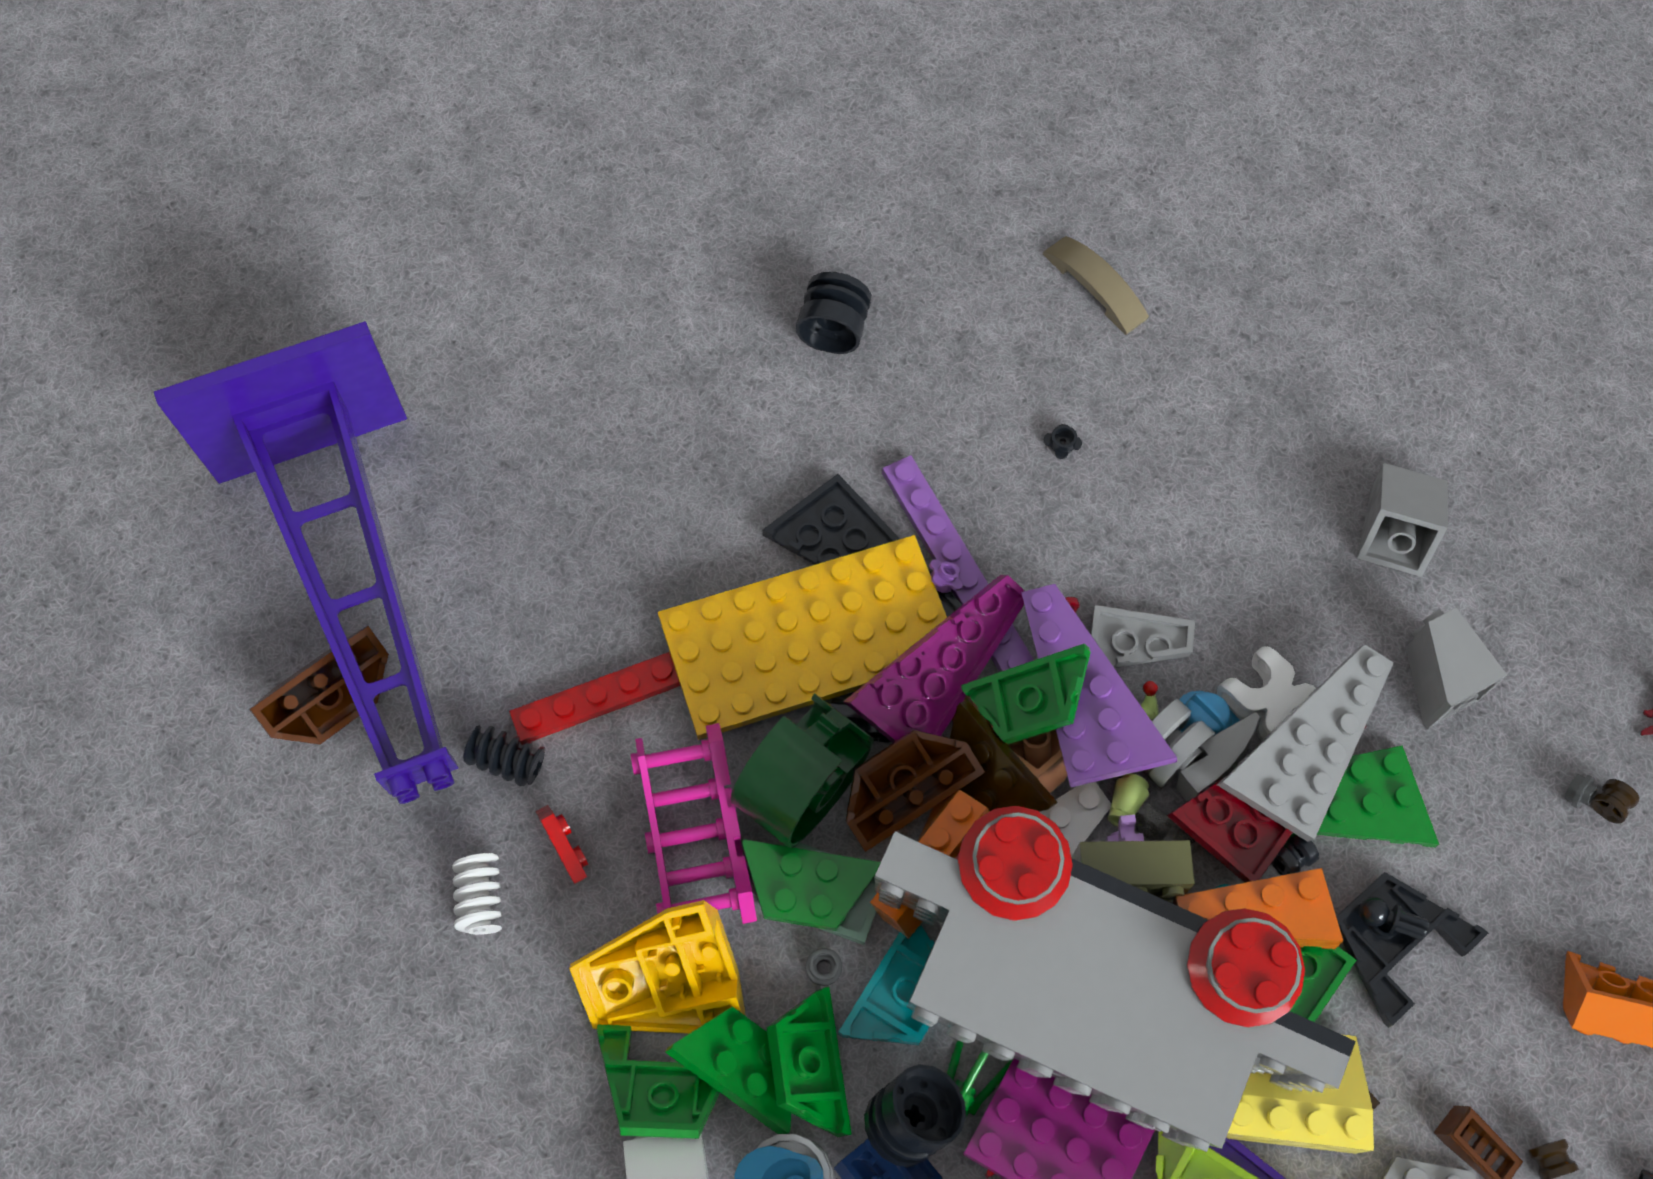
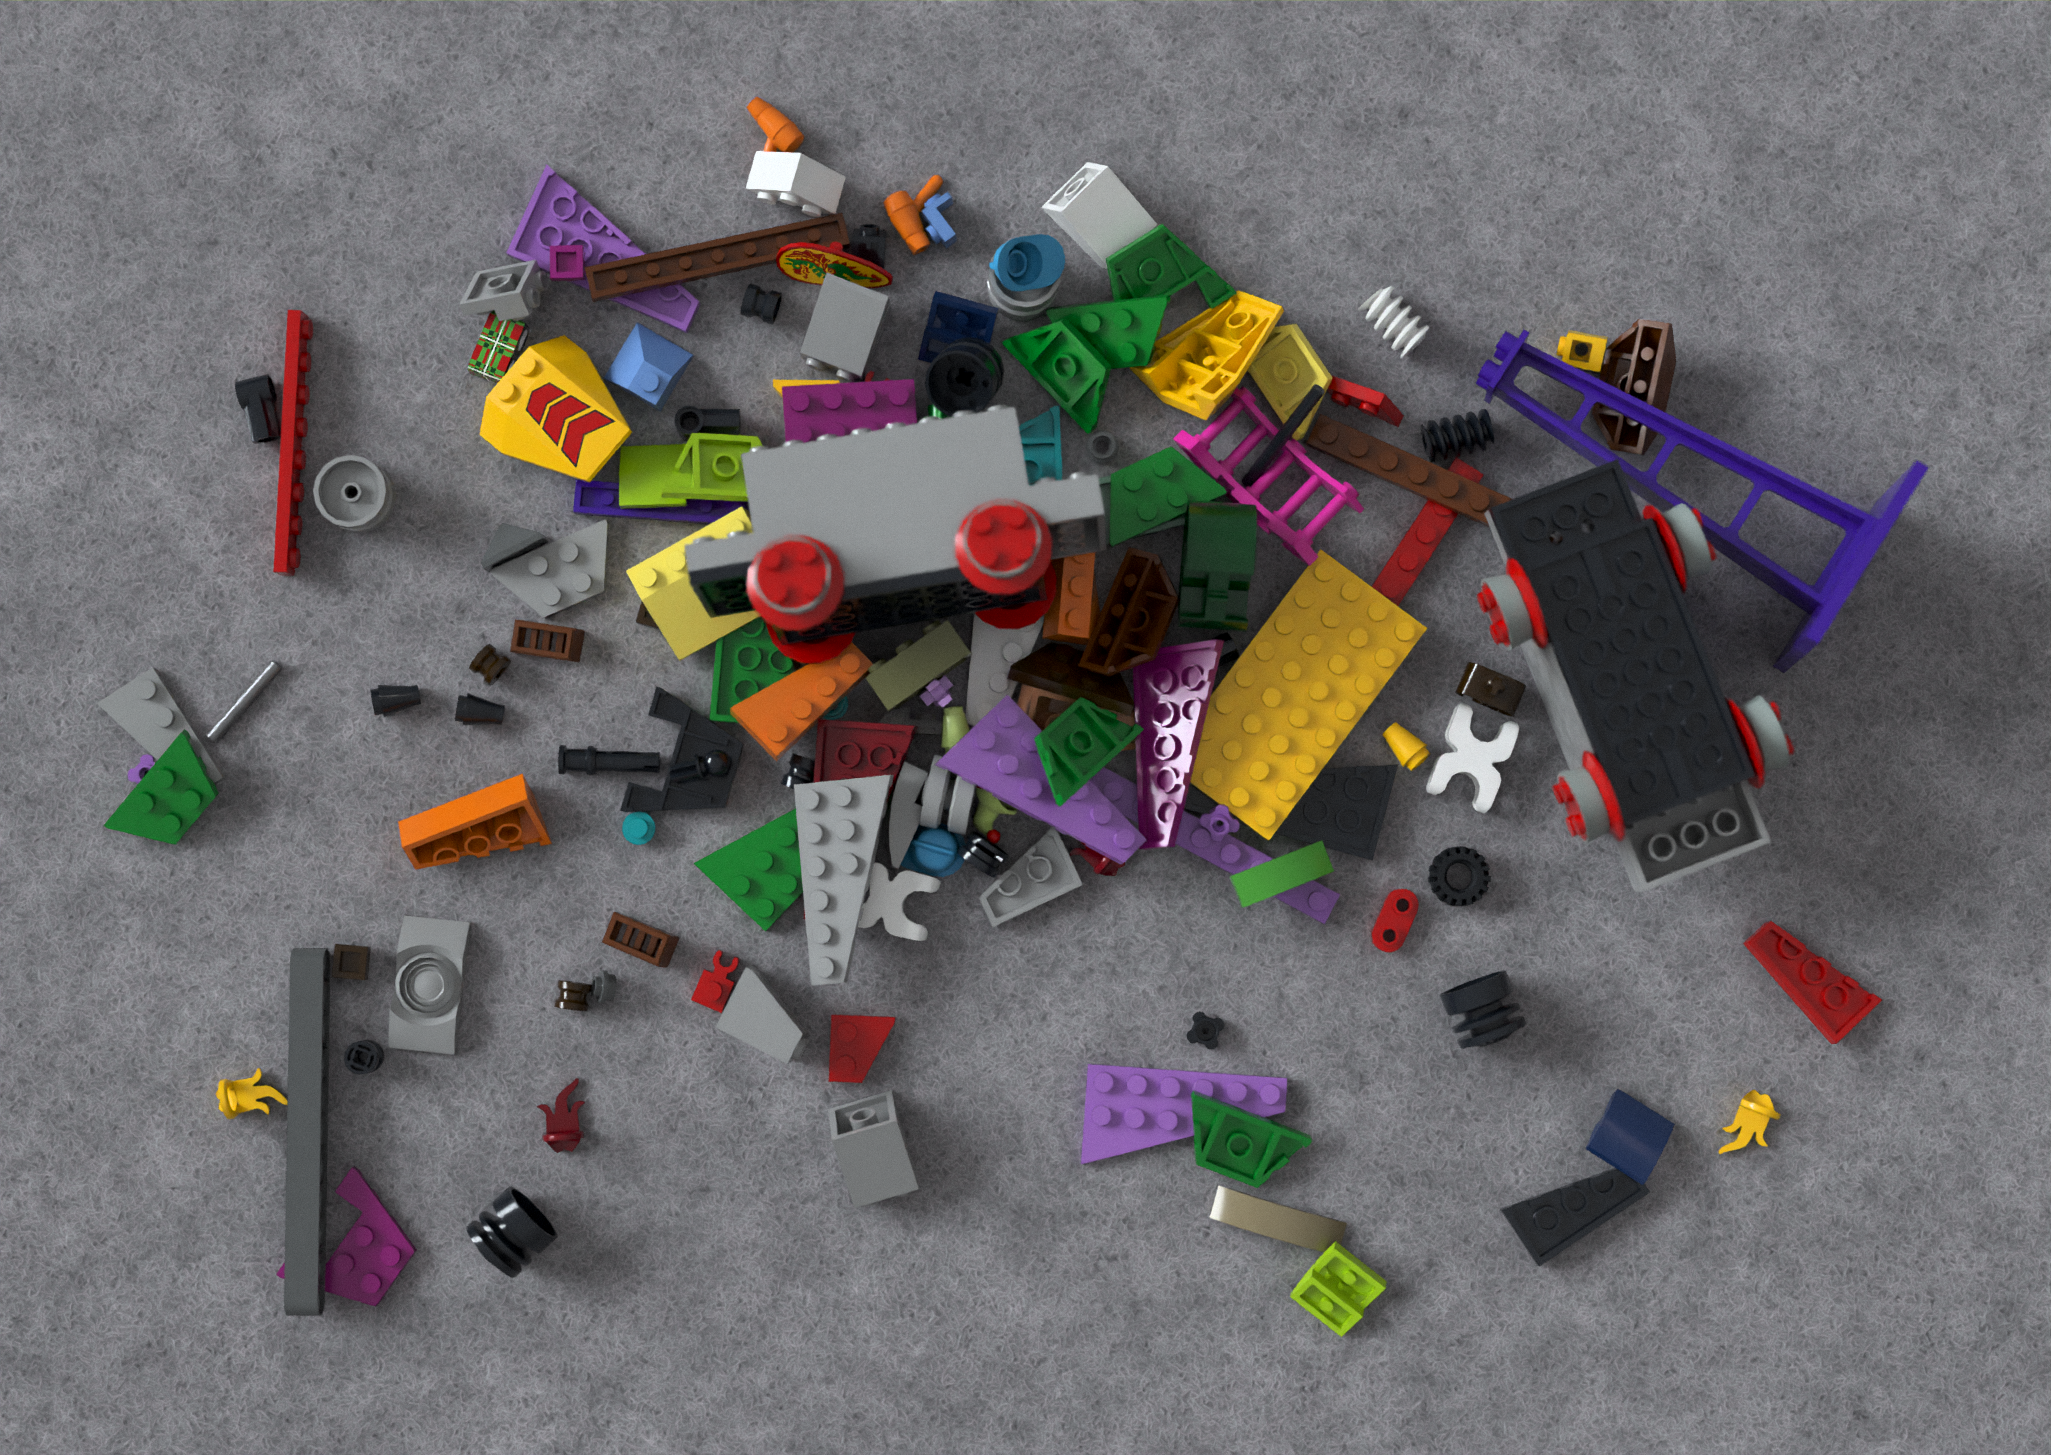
camera: 150 degrees right, 20 degrees up
(339, 743) = (1592, 359): none -> yellow brick
(531, 446) = (1627, 675): none -> black piece
(558, 730) = (1404, 469): none -> reddish brown plate
(571, 193) = (1822, 993): none -> red wing
(606, 902) = (1287, 371): none -> light yellow wing
(642, 538) = (1491, 689): none -> dark brown beam
(654, 850) = (1283, 435): none -> black bar
(689, 138) = (1751, 1117): none -> yellow piece
(697, 498) = (1472, 757): none -> white piece
(744, 540) = (1406, 746): none -> yellow cone
(777, 405) = (1478, 869): none -> black tyre
(787, 176) = (1630, 1136): none -> dark blue slope
(853, 424) = (1393, 919): none -> red plate
(867, 159) = (1569, 1213): none -> black wing
(923, 502) = (1281, 874): none -> bright green slope
(1081, 212) = (1338, 1289): none -> lime slope
(1089, 344) = (1240, 1141): none -> green wing
(1144, 416) = (1154, 1106): none -> medium lavender wing
(1171, 679) = (980, 857): none -> black wheel
(1368, 608) = (855, 1045): none -> red wing
(1471, 729) = (714, 987): none -> red plate
(1475, 908) = (638, 828): none -> teal plate
(1490, 998) = (592, 760): none -> black pin
(1507, 808) = (665, 949): none -> reddish brown slope
(1588, 1123) = (478, 711): none -> black cone

